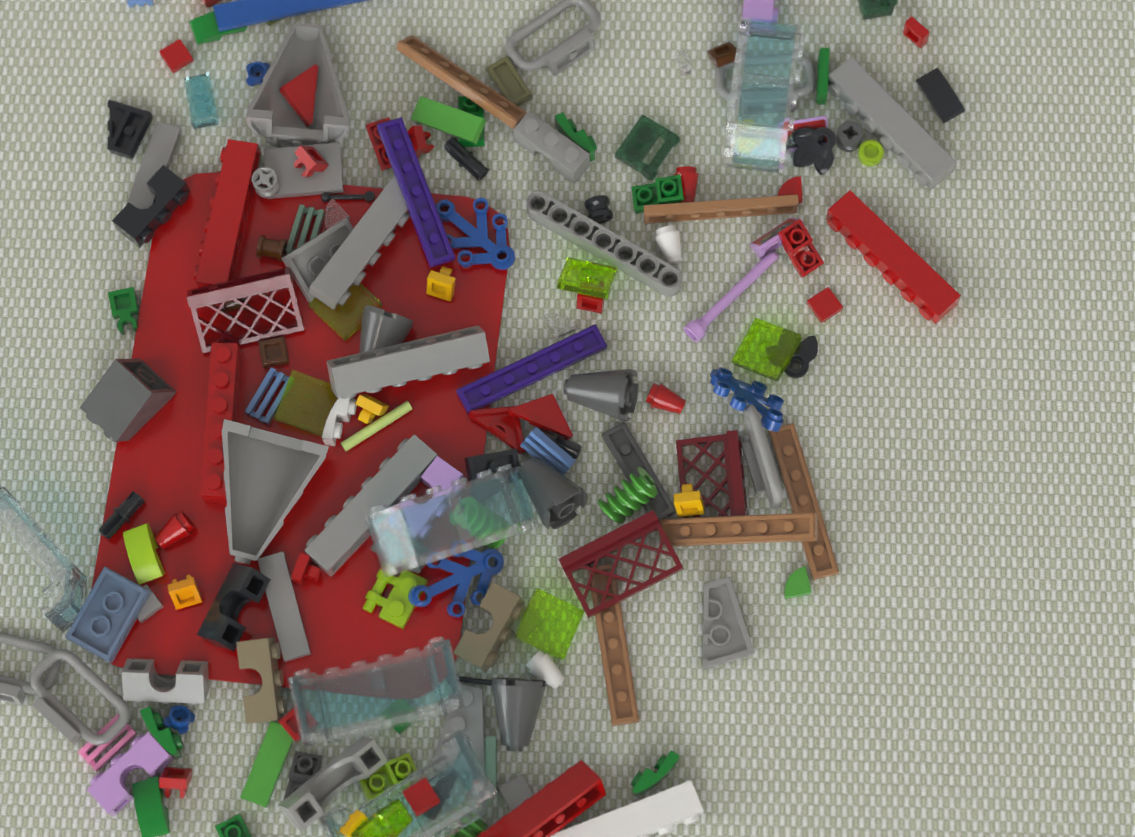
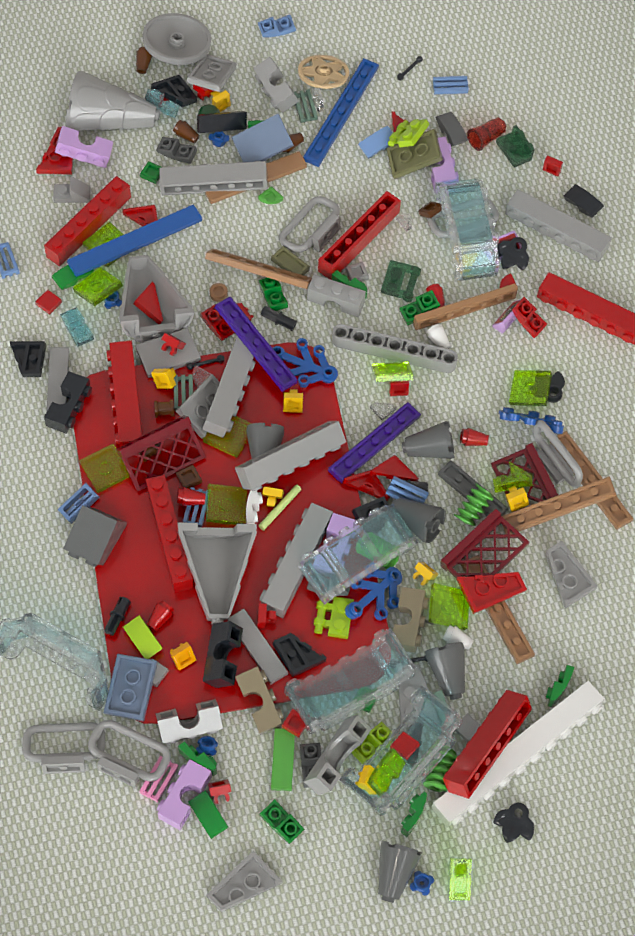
camera: 25 degrees left, 10 degrees down
(123, 306) = (69, 476): green plate -> none
(124, 351) = (87, 500): none -> medium blue tile
(169, 309) = (104, 468): none -> clear neon green tile
(243, 52) = (97, 286): none -> clear neon green tile
(262, 382) = (190, 497): none -> red cone
(267, 177) = (145, 360): light grey wheel -> none
(285, 206) = (164, 378): none -> yellow tile
(329, 633) = (296, 654): none -> black wing
(400, 100) = (218, 292): none -> medium nougat tile
(448, 119) = (259, 294): bright green tile -> none
(535, 567) = (426, 571): none -> yellow tile
(593, 119) = (357, 271): none -> light grey tile
(599, 209) = (382, 326): black wheel -> none
(608, 618) = (490, 590): none -> red wing
(612, 68) = (359, 235): none -> red brick
(696, 329) = (478, 387): lavender piece -> none
(698, 474) = (517, 478): none -> clear neon green slope
(797, 584) = (608, 534): bright green tile -> none
(822, 76) = (501, 205): green tile -> none
(824, 305) = (557, 350): red tile -> none
(848, 142) = (534, 246): dark grey wheel -> none
(870, 153) = (550, 248): lime tile -> none

